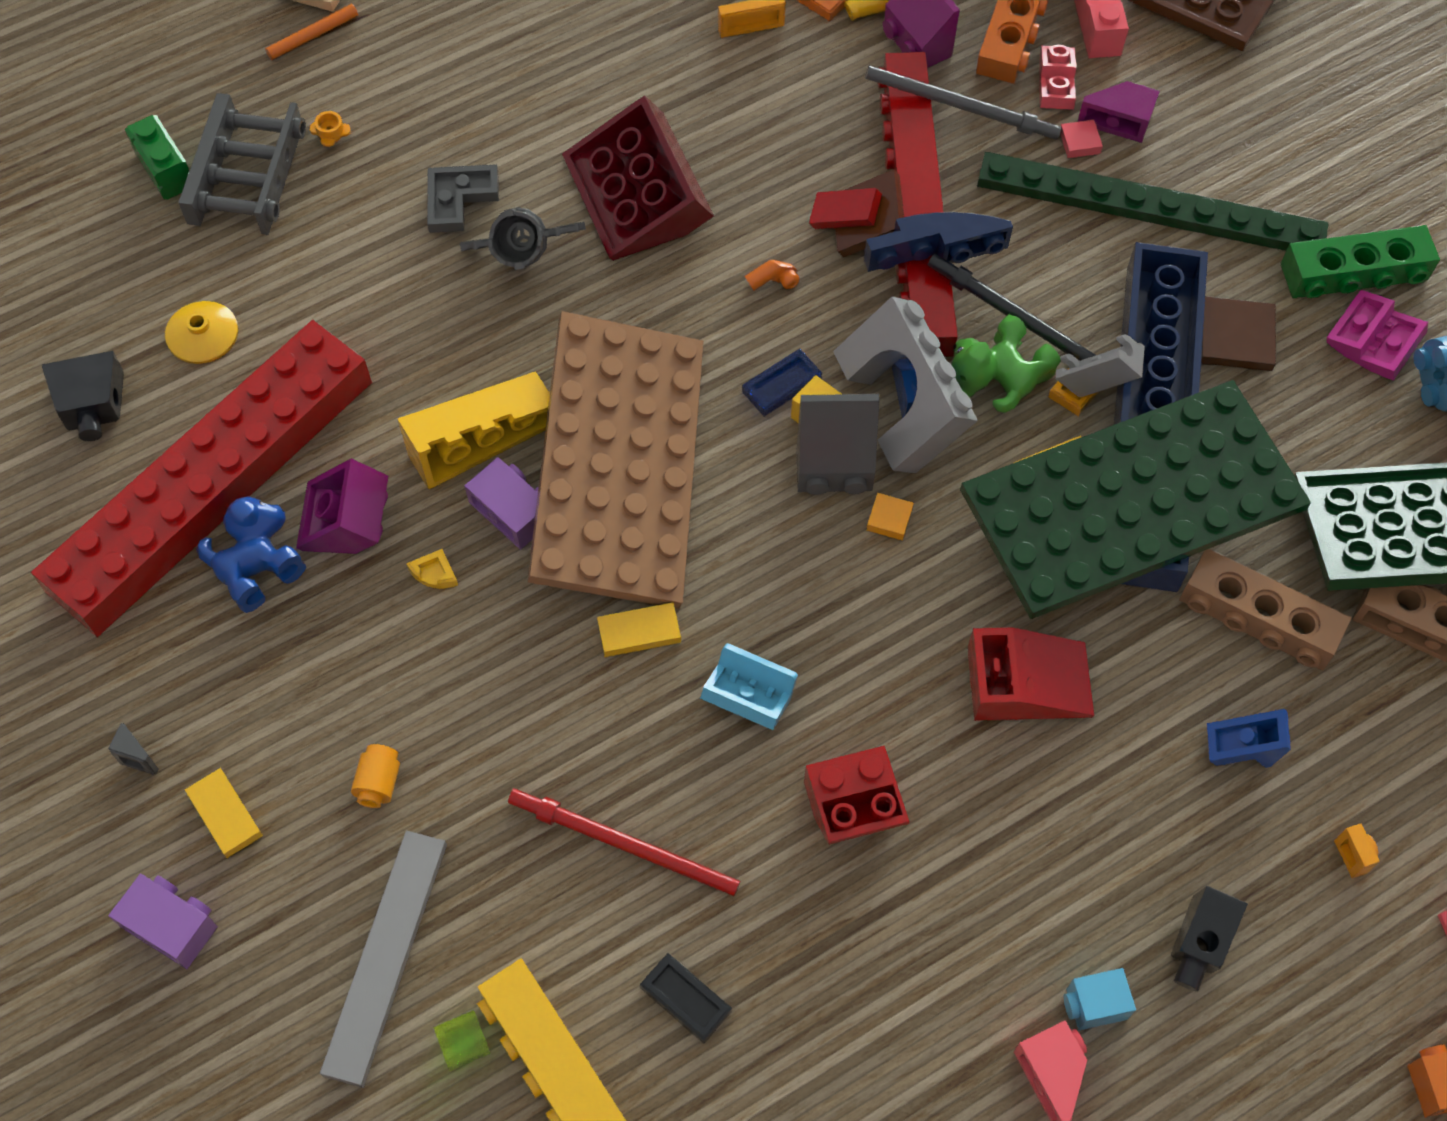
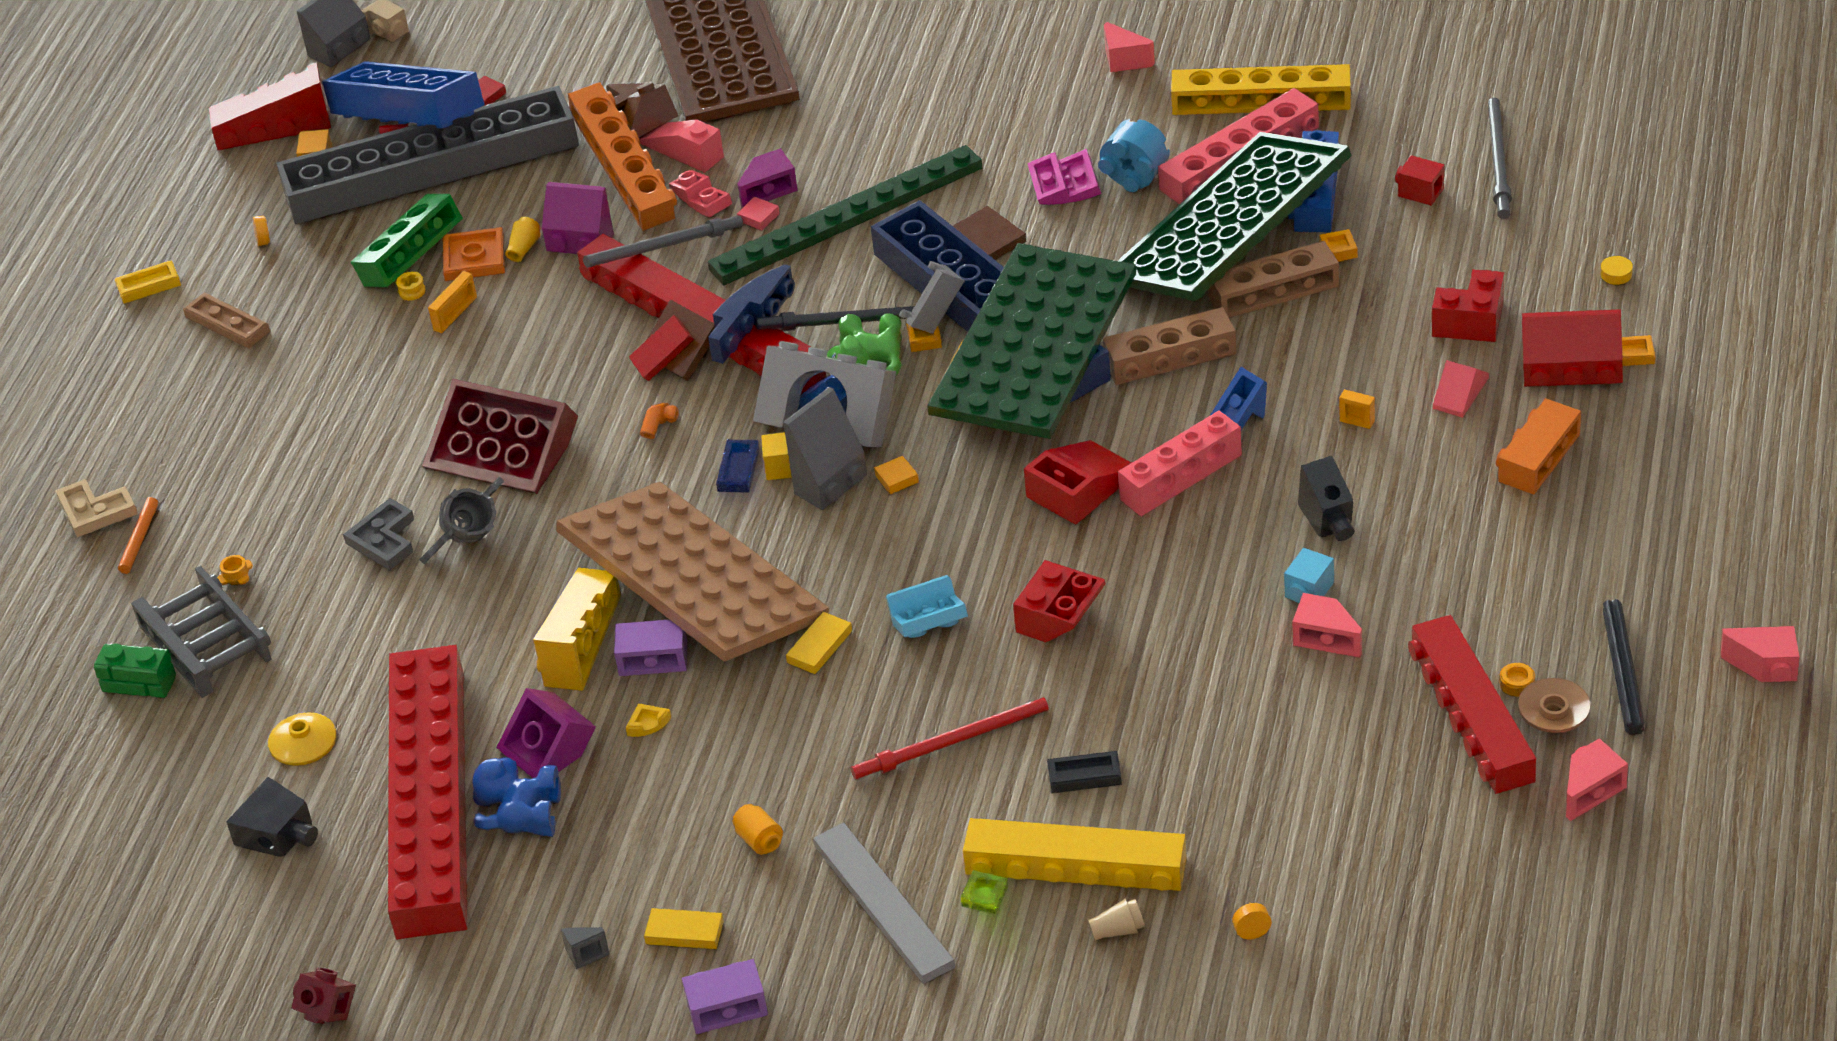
camera: 40 degrees left, 20 degrees down
(1129, 750) = (1180, 463): none -> coral brick
(1359, 262) = (1009, 149): green brick -> none

